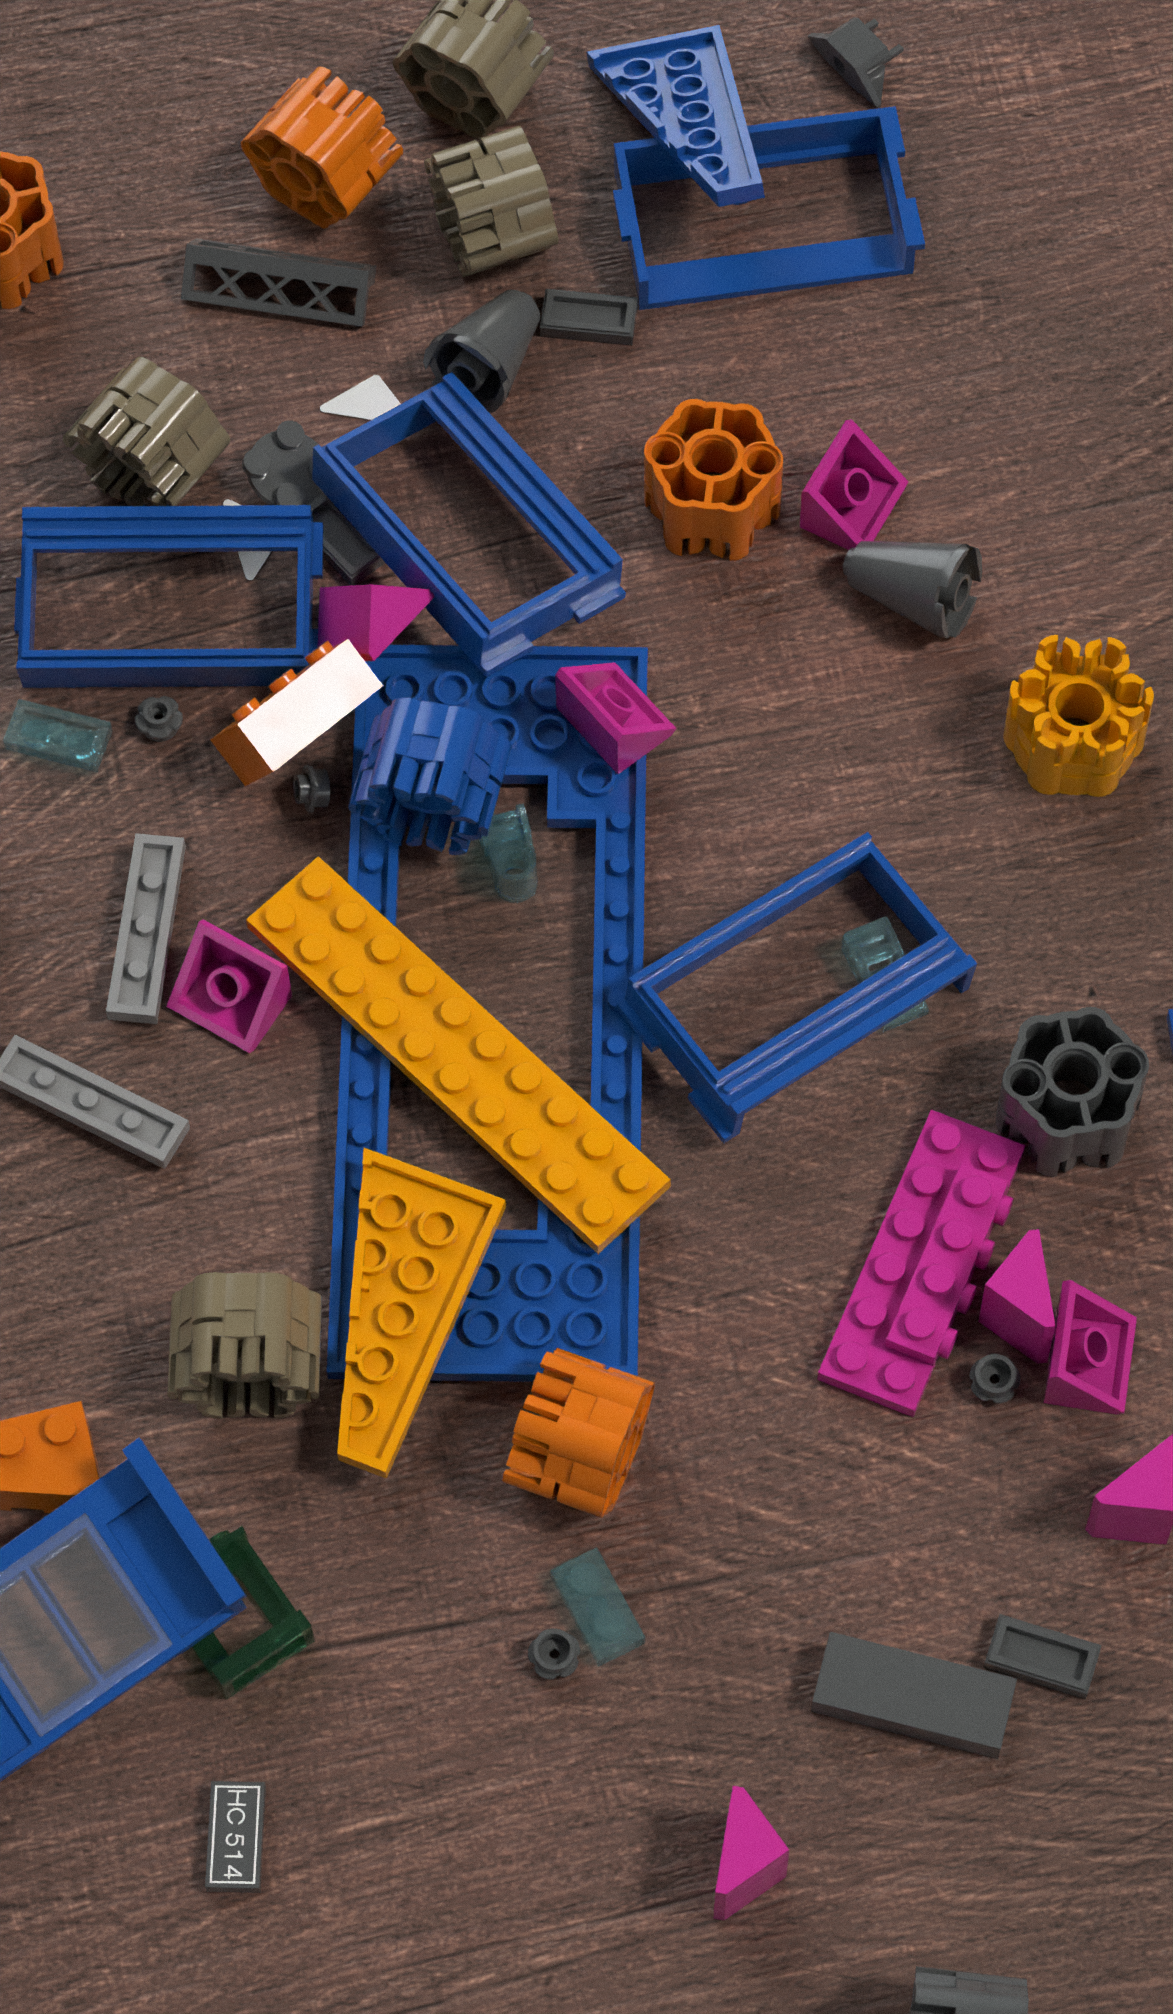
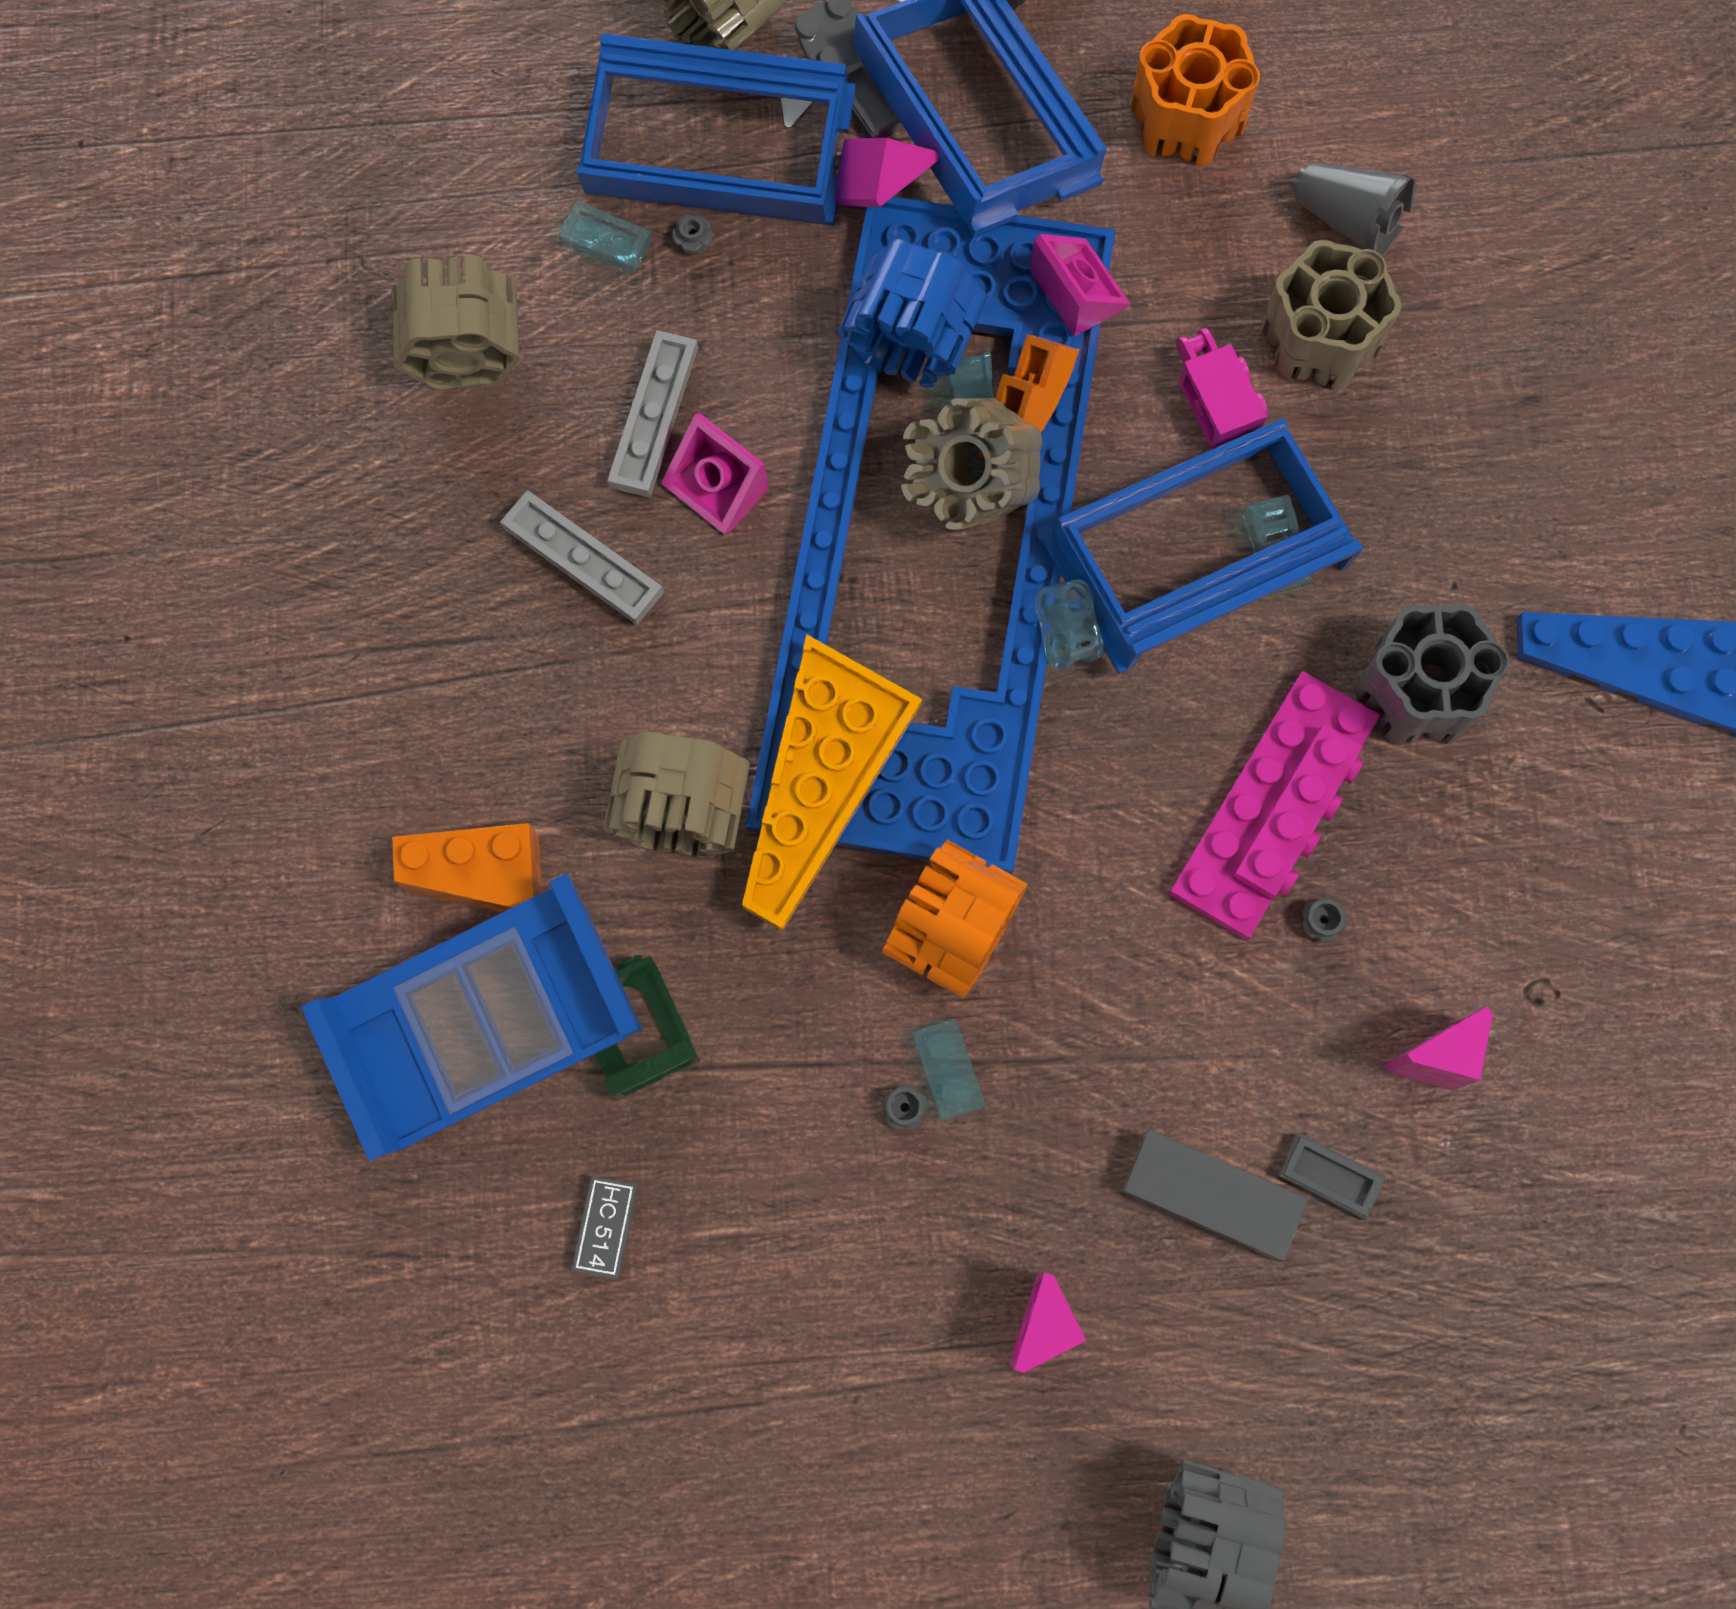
camera: 10 degrees right, 10 degrees up
(296, 711) = (807, 241): wedge -> none
(312, 788) = (811, 312): dark grey plate -> none
(459, 1055) = (902, 564): light orange plate -> none
(489, 942) = (942, 472): none -> dark tan piece
(574, 854) = (1038, 380): none -> orange slope
(656, 1090) = (1068, 619): none -> clear light blue piece
(792, 810) = (1219, 389): none -> dark pink brick
(850, 490) = (1309, 117): dark pink slope -> none
(893, 740) = (1308, 335): none -> dark tan piece
(1019, 1300) = (1363, 858): dark pink slope -> none
(1084, 687) = (1497, 320): light orange piece -> none
(1089, 1352) = (1410, 909): dark pink slope -> none

